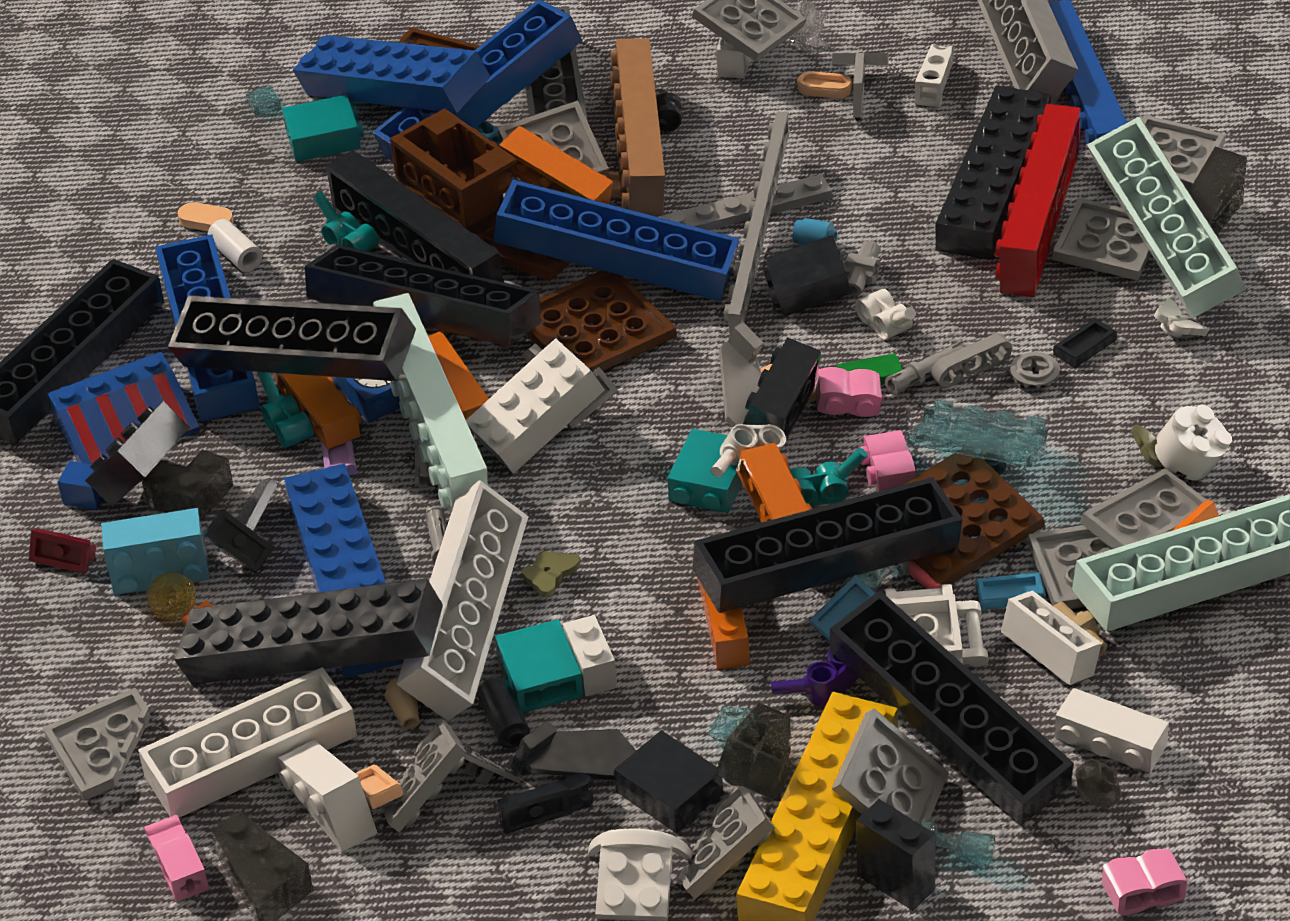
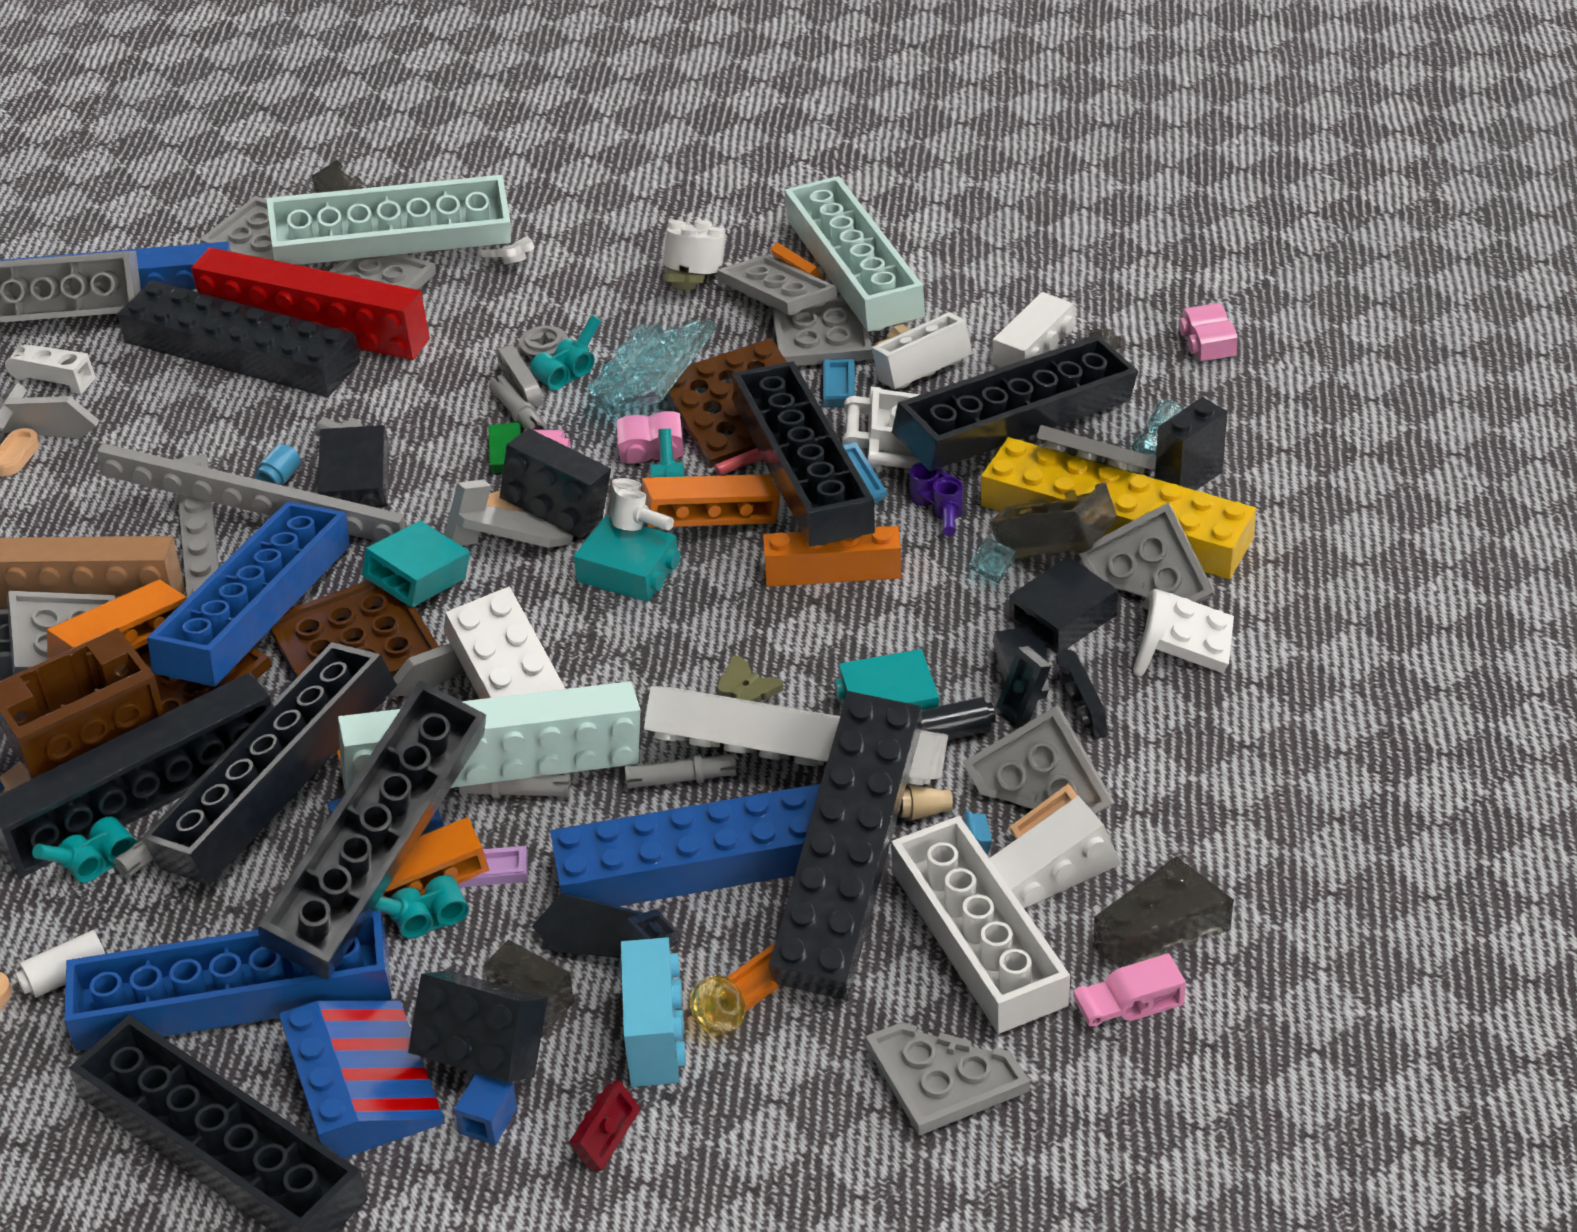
camera: 85 degrees left, 0 degrees up
(365, 742) = (979, 828): none -> dark azure piece
(591, 655) = (882, 640): white brick -> none
(677, 335) = (415, 563): none -> teal brick
(883, 316) = (434, 427): white beam -> none
(992, 387) = (569, 359): none -> teal beam
(1085, 343) = (512, 312): black tile -> none

